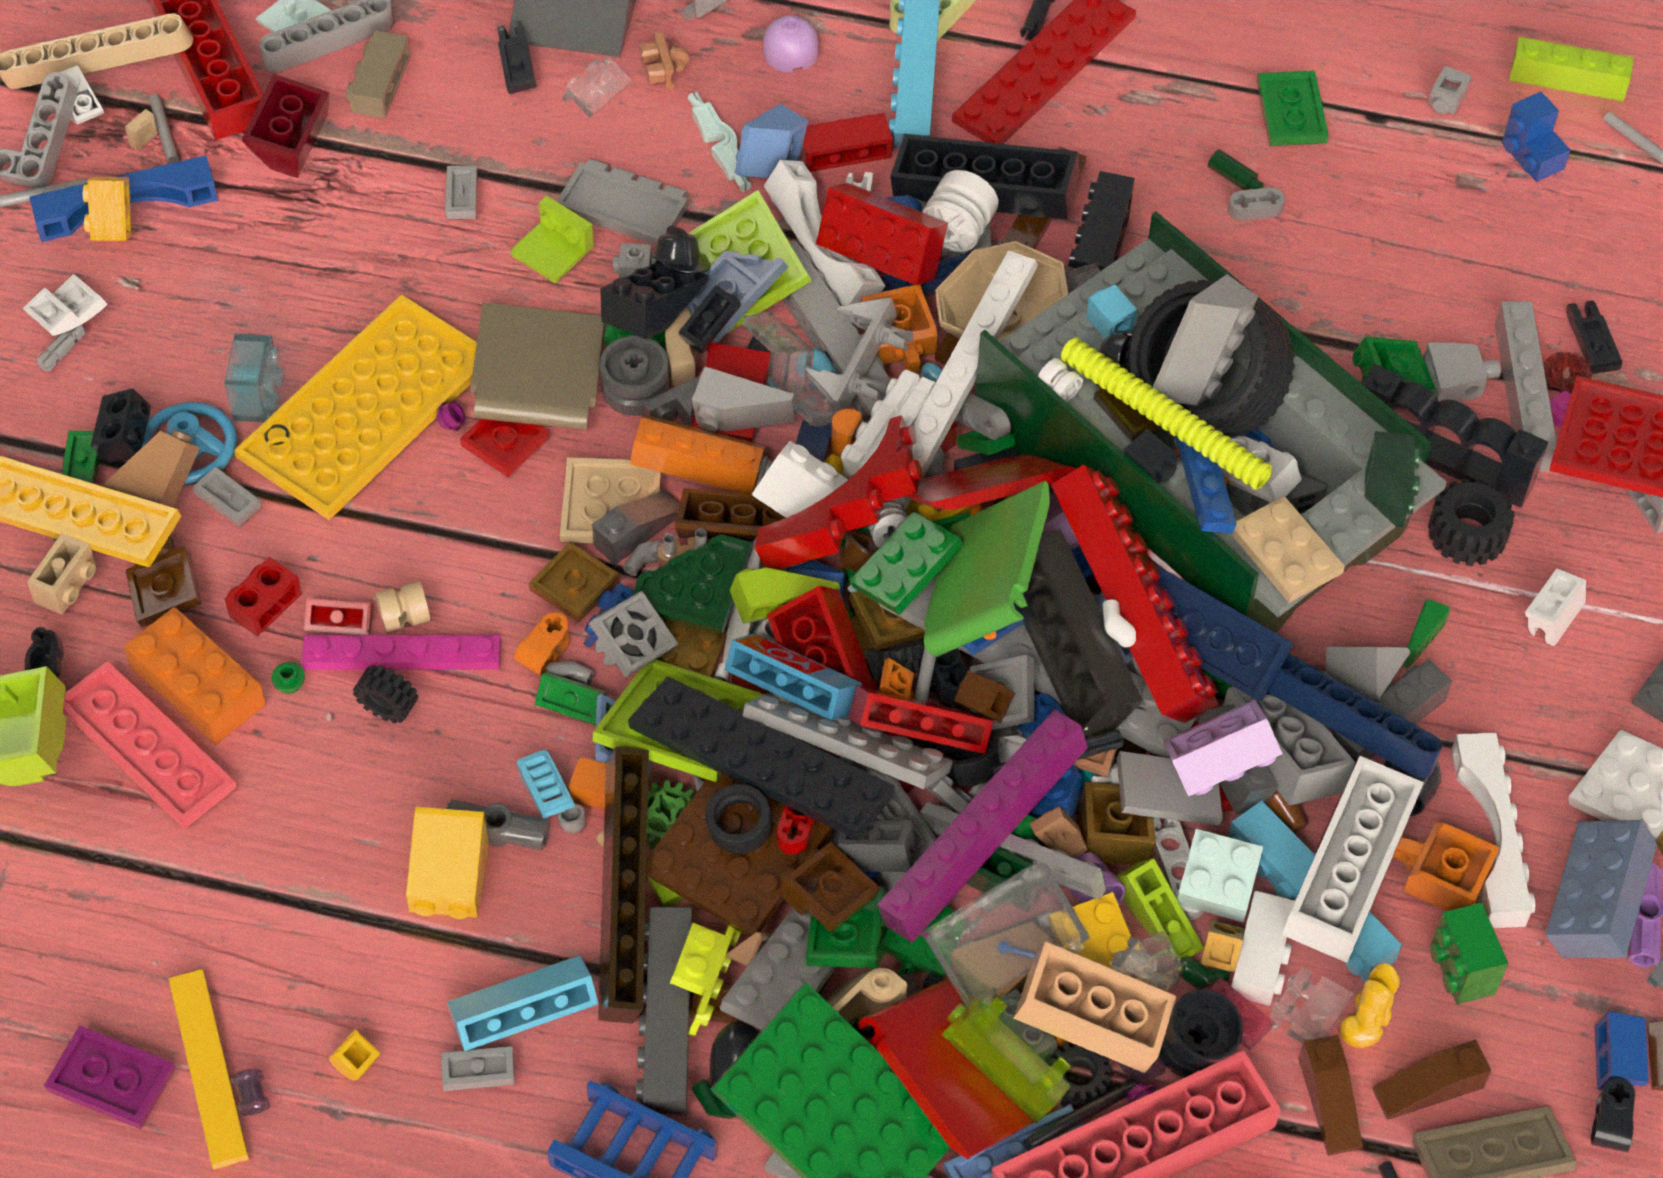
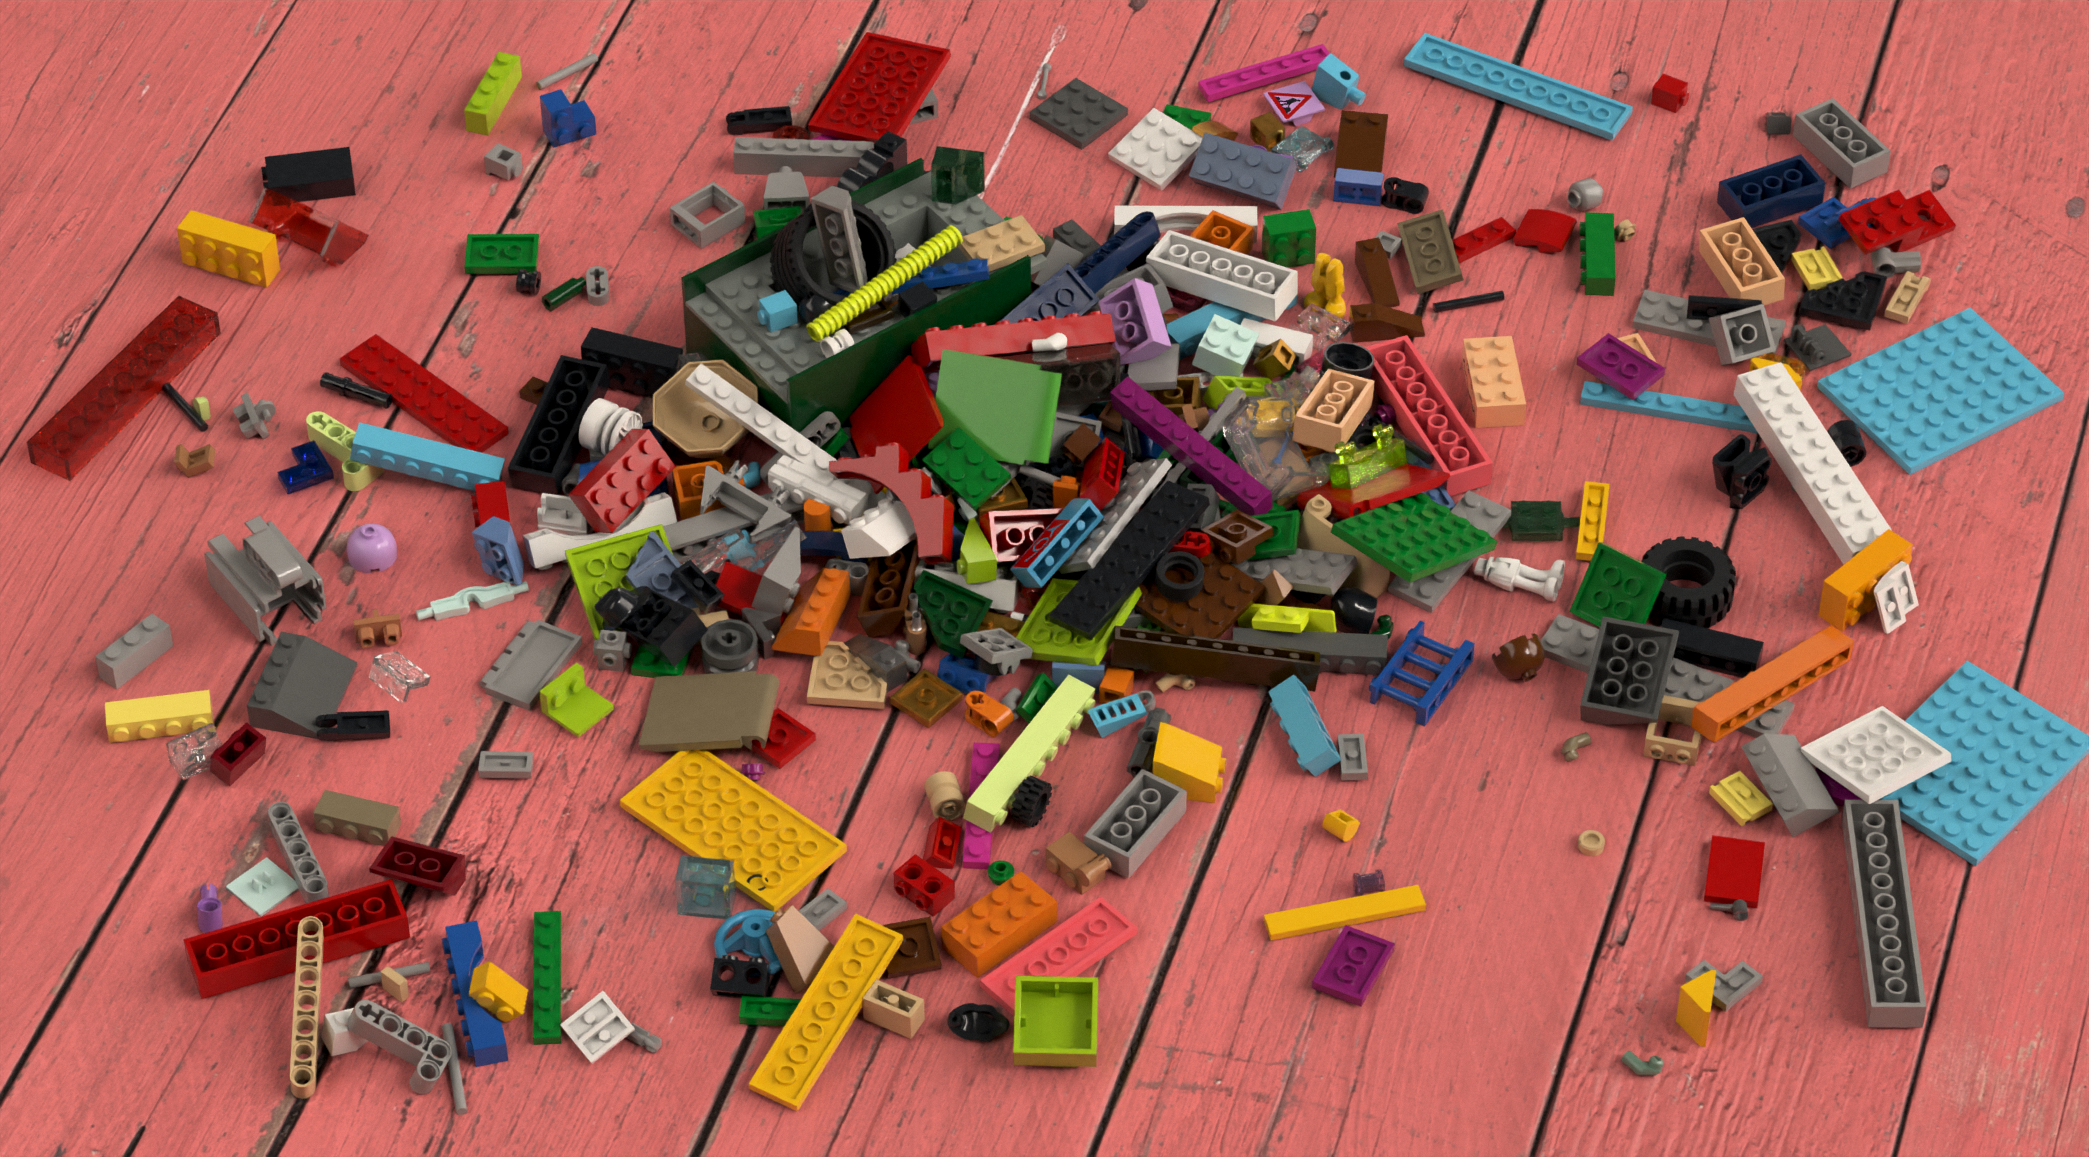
camera: 85 degrees left, 10 degrees down
(152, 260) = (547, 977): none -> green plate
(291, 752) = (1076, 863): none -> medium nougat hinge
(347, 810) = (1137, 822): none -> light grey brick
(470, 689) = (1030, 753): none -> yellowish green brick
(1245, 135) = (528, 281): none -> black wheel
(1408, 277) = (683, 215): none -> light grey window
(1502, 1092) = (1390, 243): none -> light grey plate
(1556, 605) = (1007, 166): white hinge -> none

